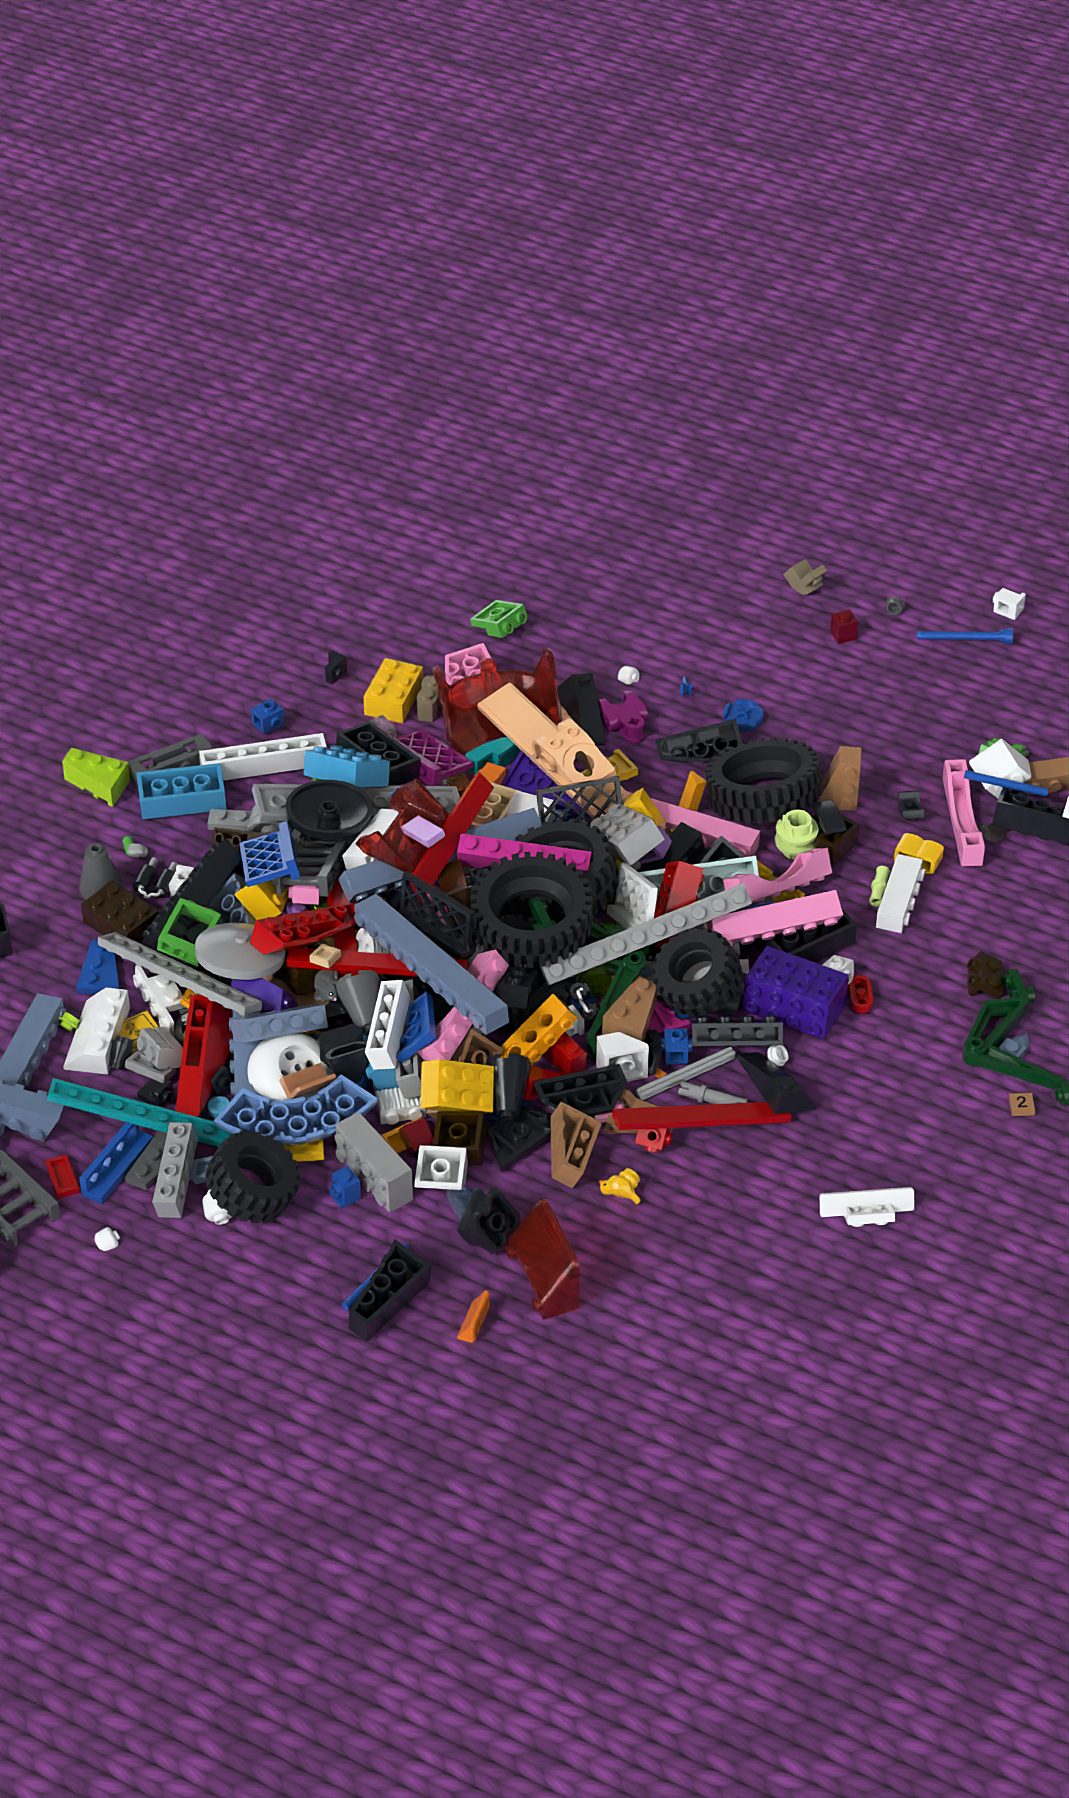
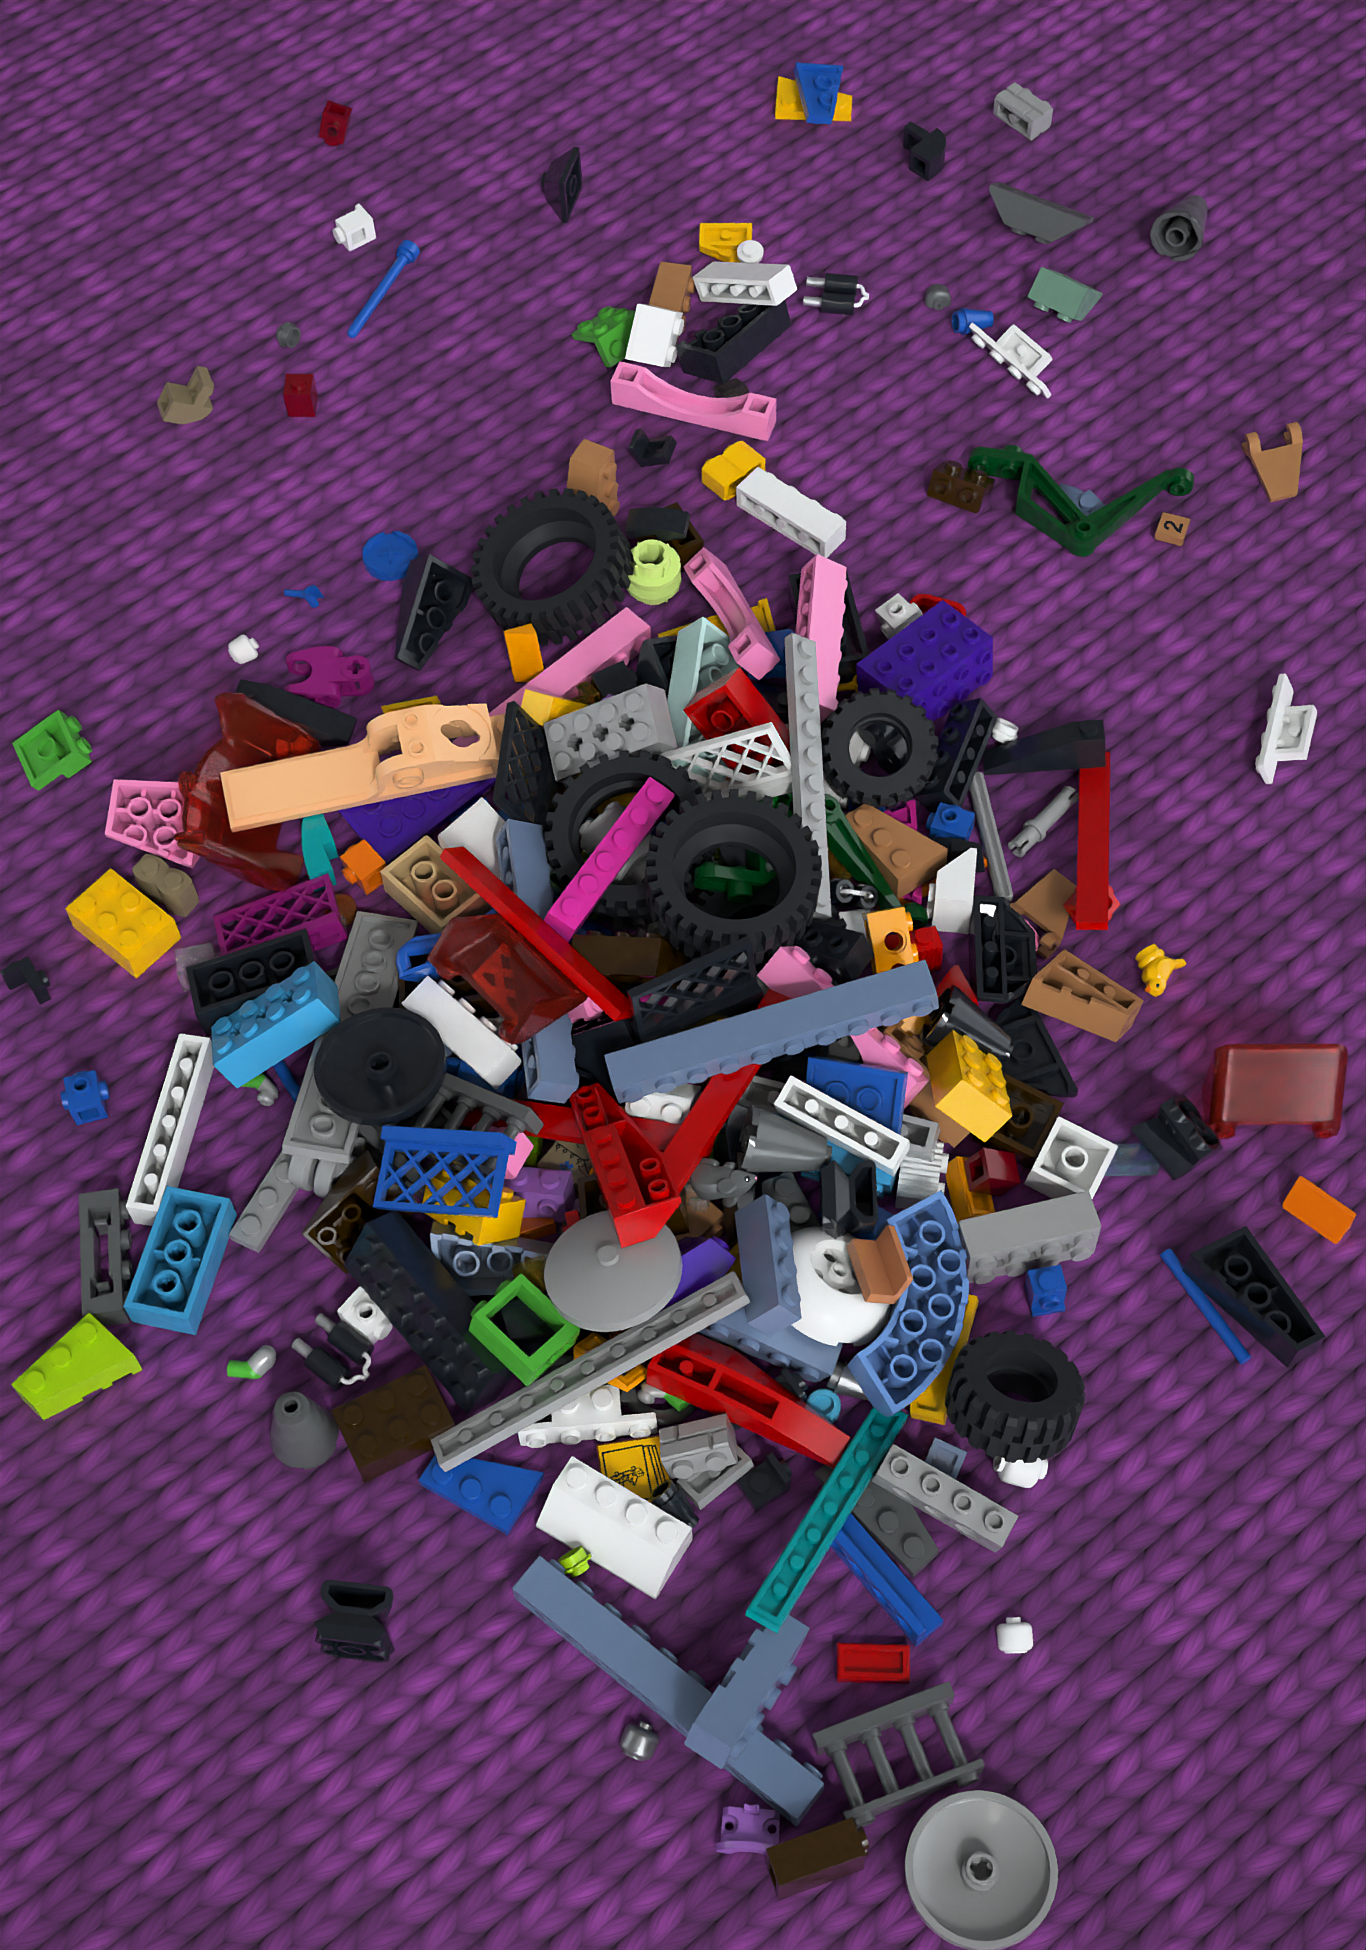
camera: 65 degrees left, 15 degrees up
(325, 956) = (683, 1160): tan tile -> none
(423, 831) = (527, 953): lavender tile -> none
(879, 885) = (766, 528): yellowish green pin -> none
(1006, 783) = (679, 340): blue bar -> none

